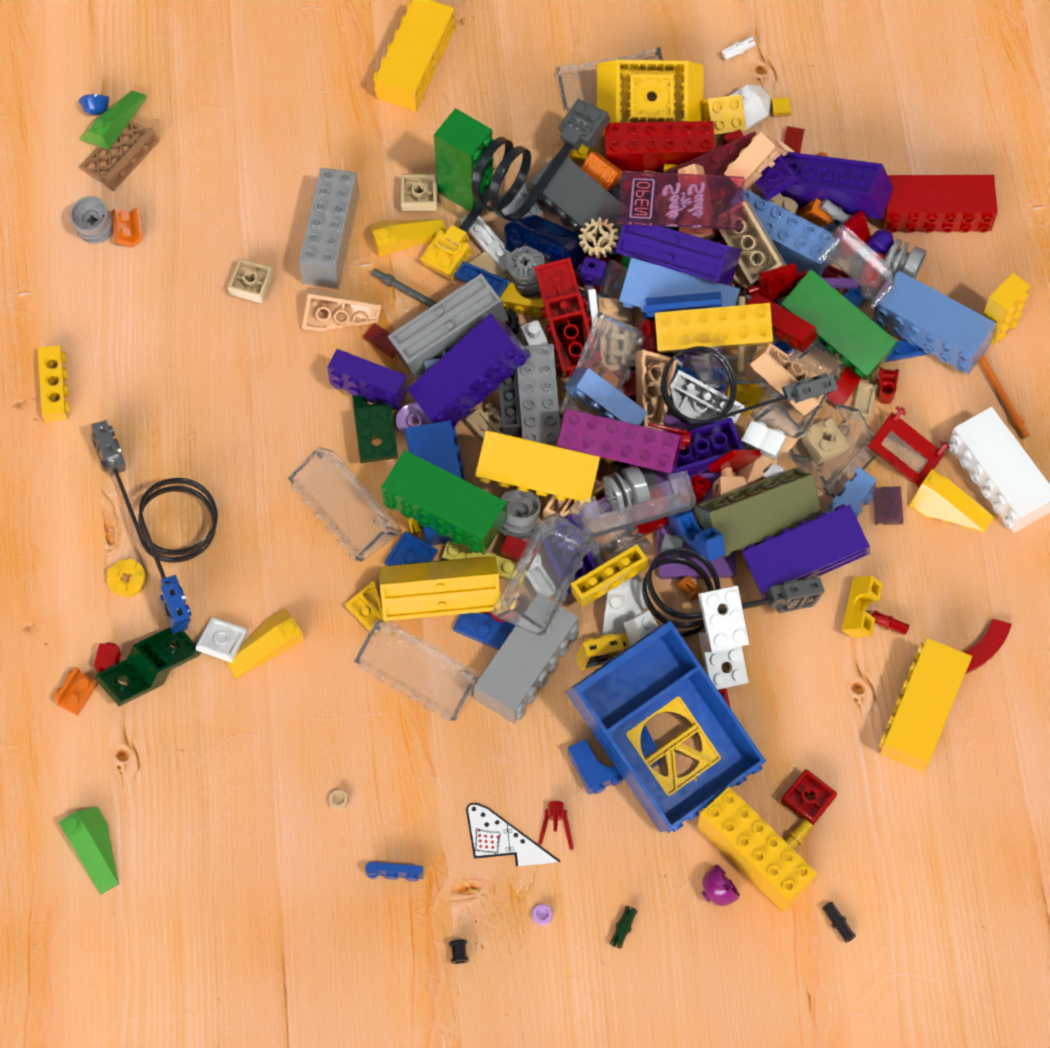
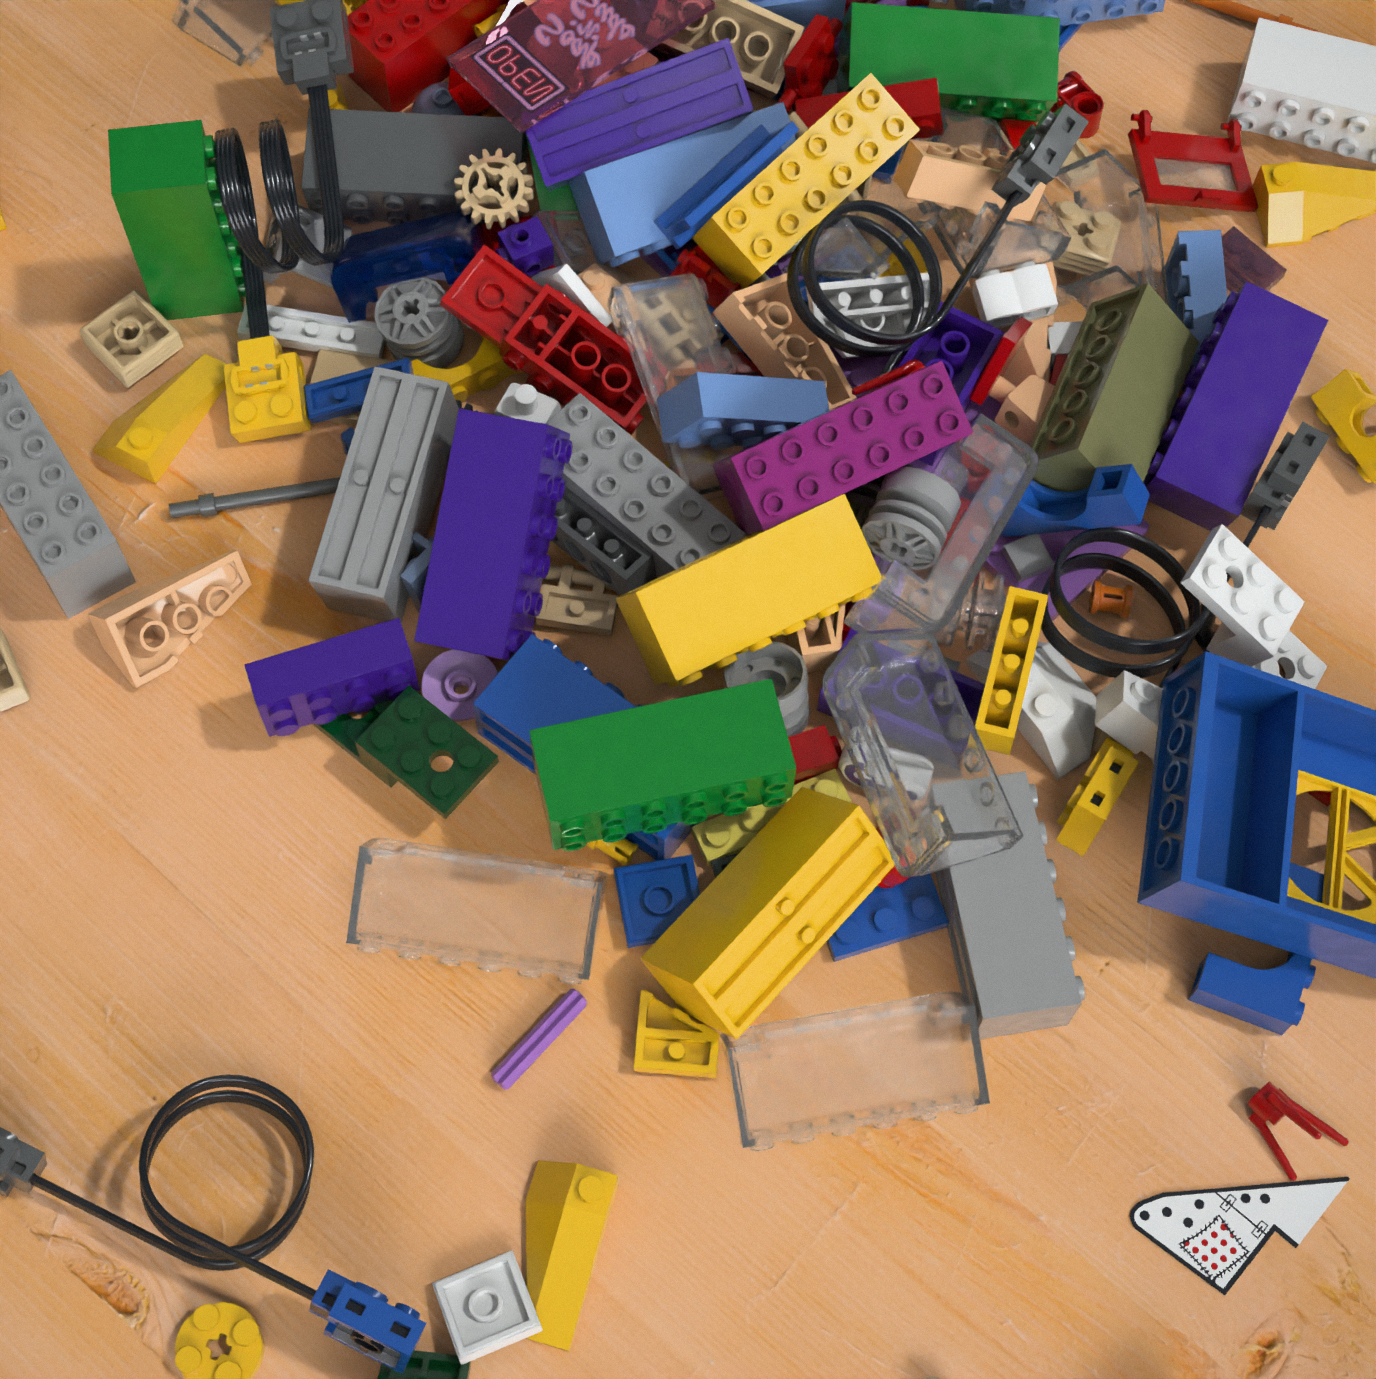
camera: 45 degrees left, 0 degrees up
(324, 568) = (538, 1039): none -> medium lavender axle
(379, 338) = (285, 604): clear red tile -> none
(602, 171) = (396, 93): orange brick -> none

